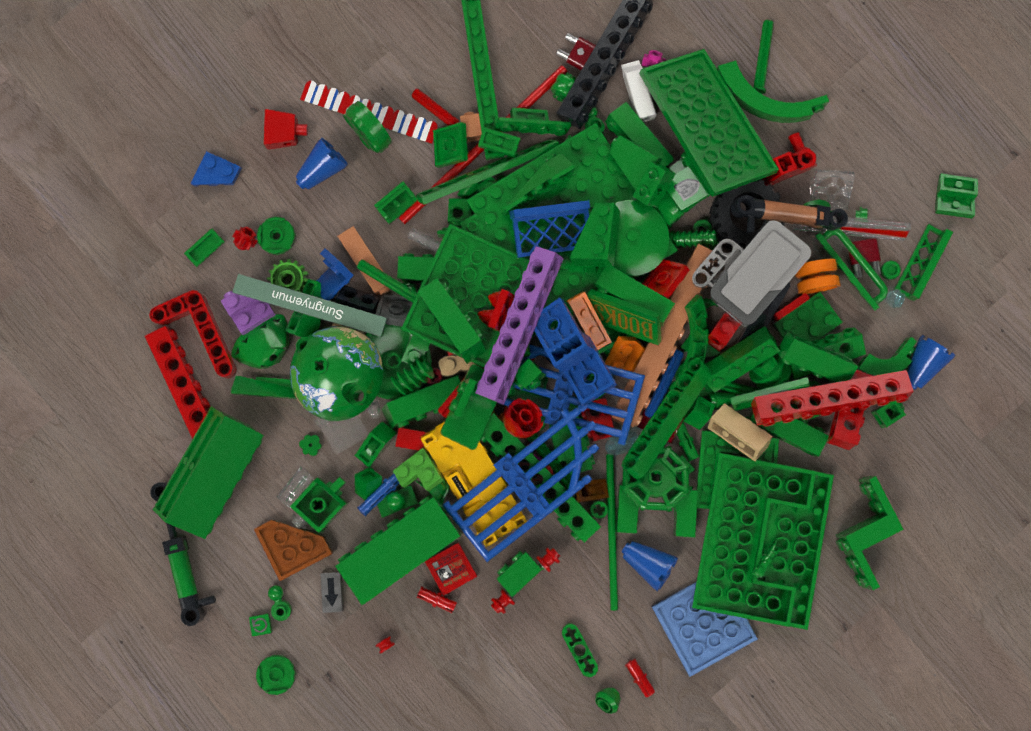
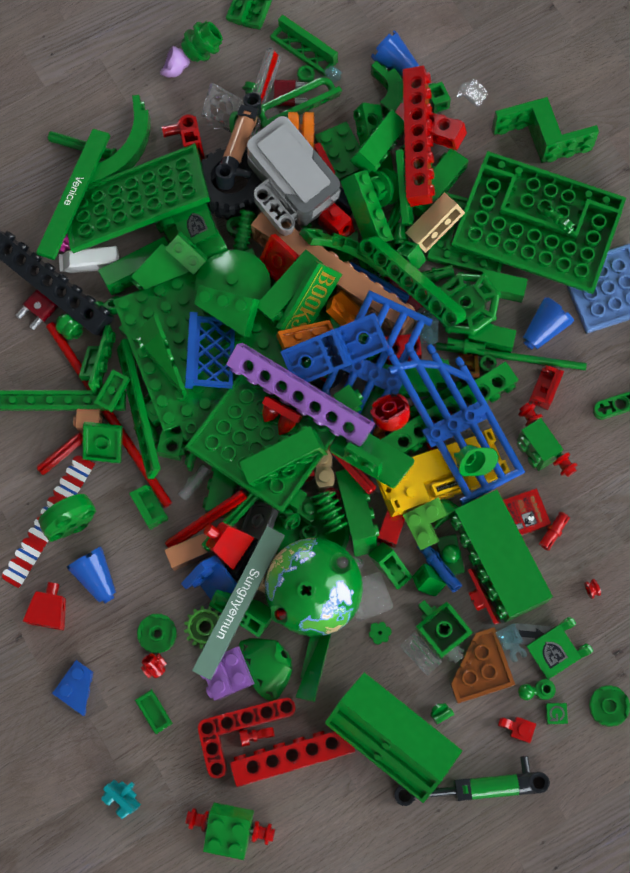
camera: 75 degrees left, 10 degrees down
(106, 336) = (229, 830): none -> green brick
(123, 234) = (123, 796): none -> teal hips
(196, 344) = (264, 733): none -> red piece
(241, 592) = (520, 728): none -> red plate
(242, 514) = (441, 712): none -> green plate
(319, 615) = (555, 651): none -> green flag
(320, 570) = (510, 639): none -> clear light blue plate
(358, 536) = (481, 599): none -> red piece
(366, 284) = (227, 542): none -> red torso
(388, 259) = (207, 519): none -> red axle
(398, 340) = (290, 520): none -> green plate
(483, 509) = (475, 460): none -> green piece
(584, 572) = (546, 387): none -> red hinge
(611, 484) = (465, 346): none -> green pin
(703, 59) = (73, 194): none -> green tile
(875, 131) = (175, 63): none -> lavender hair
(902, 450) = (473, 92): none -> clear bracket
(903, 153) = (201, 41): none -> green piece

